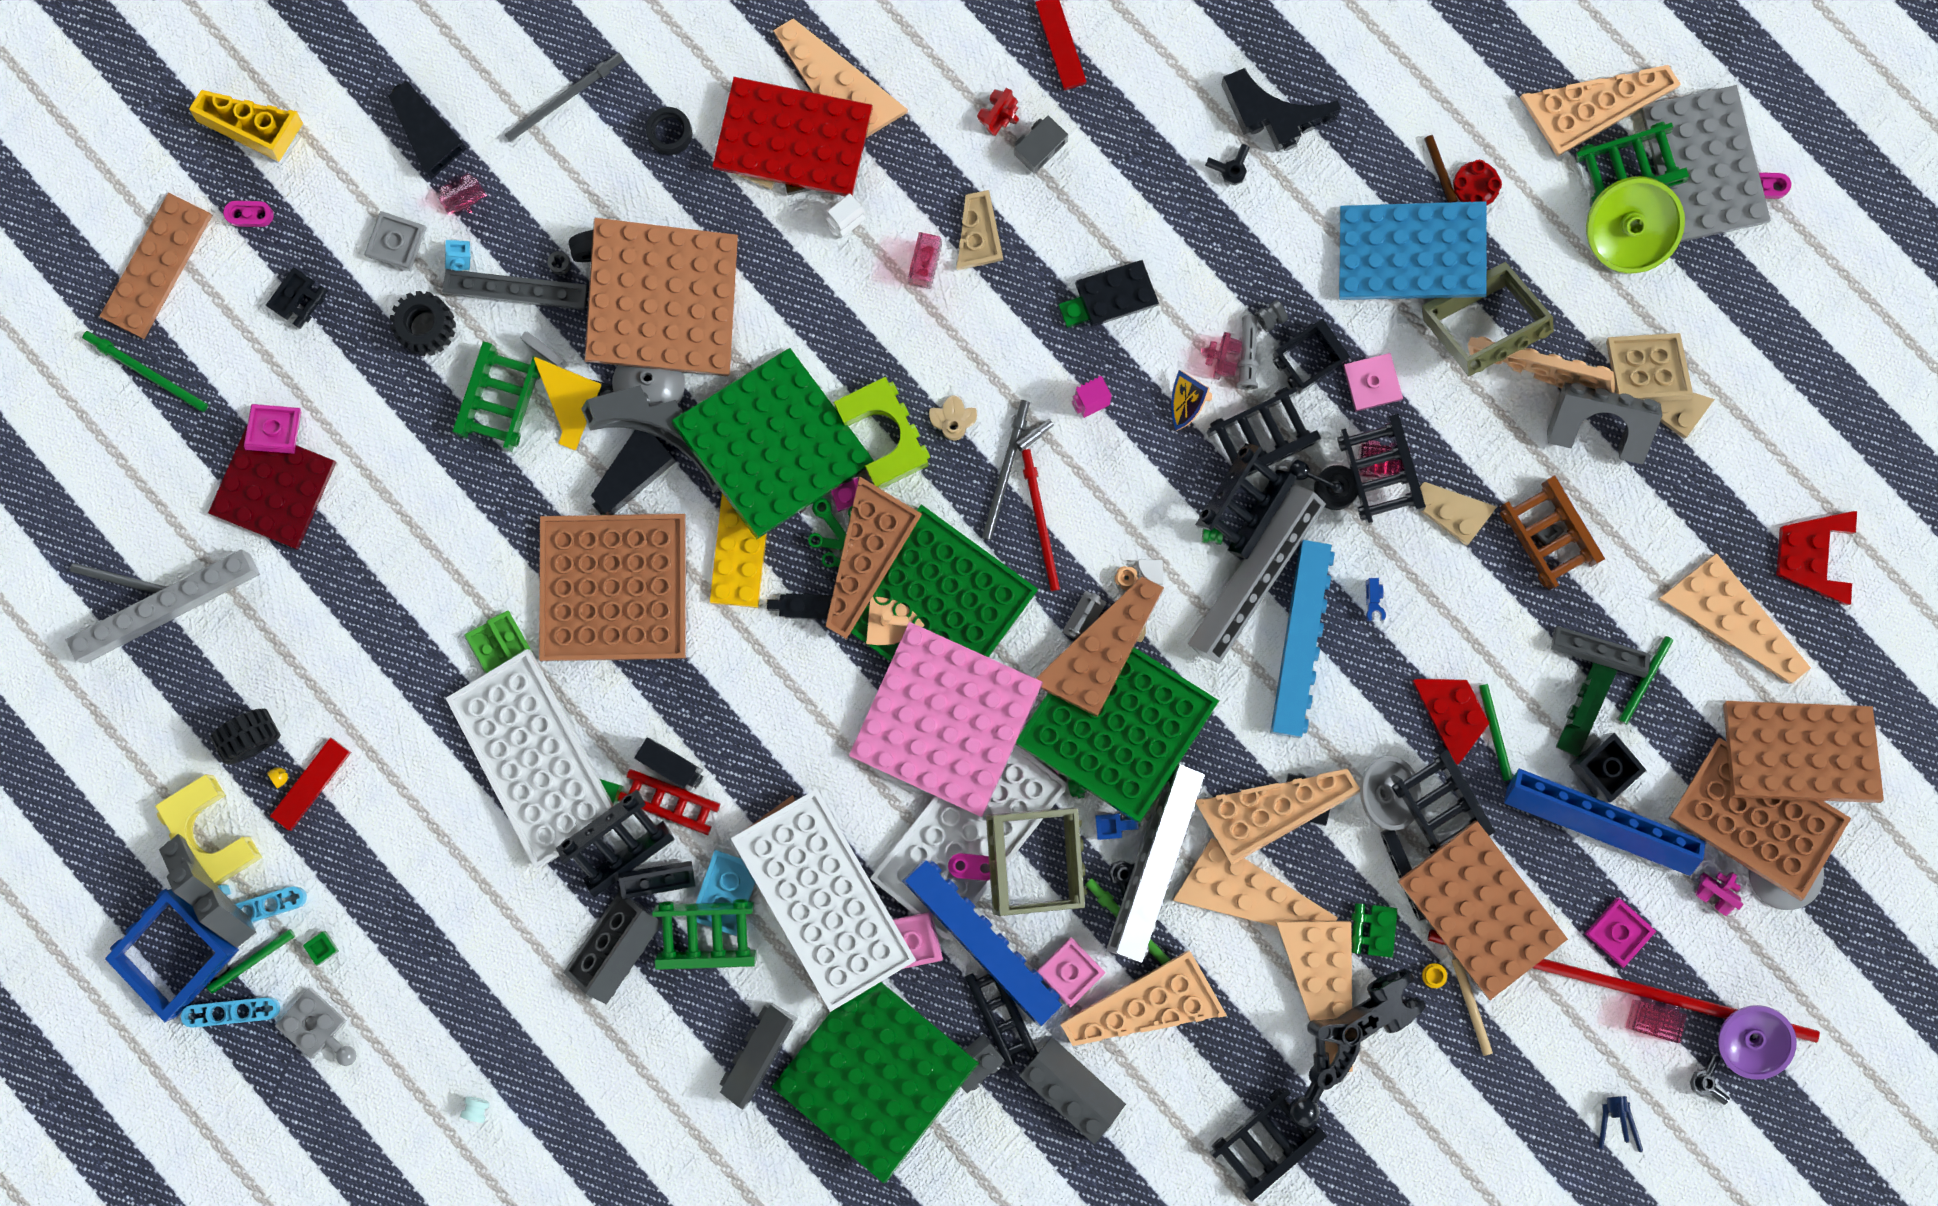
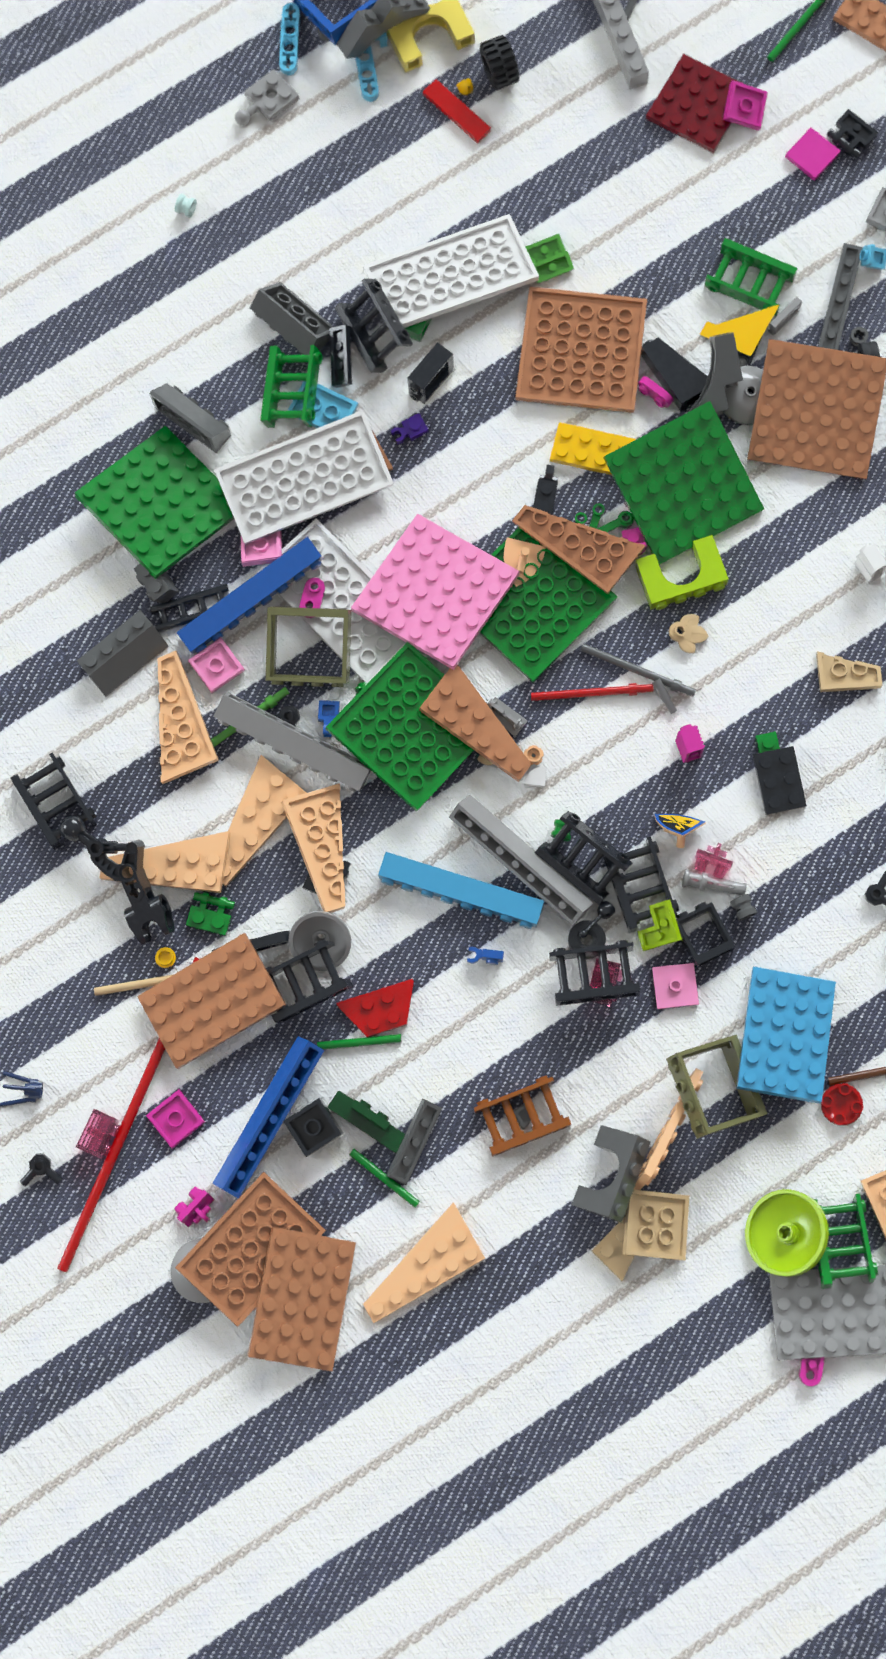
camera: 100 degrees right, 5 degrees down
(251, 961) = (326, 57): green bar -> none
(320, 948) = (327, 106): green plate -> none
(327, 342) = (812, 153): none -> dark pink tile
(409, 310) = (818, 210): black tyre -> none
(664, 484) = (660, 395): none -> dark pink plate
(683, 797) = (390, 379): red bar -> none
(736, 778) = (412, 428): none -> dark purple plate
(925, 260) = (825, 624): clear pink brick -> none
(1317, 400) = (664, 929): none -> lime plate
(1455, 512) = (553, 1036): tan wing -> none
(1758, 1057) = (57, 1204): medium lavender dish -> none
(1805, 554) = (474, 1338): red wing -> none

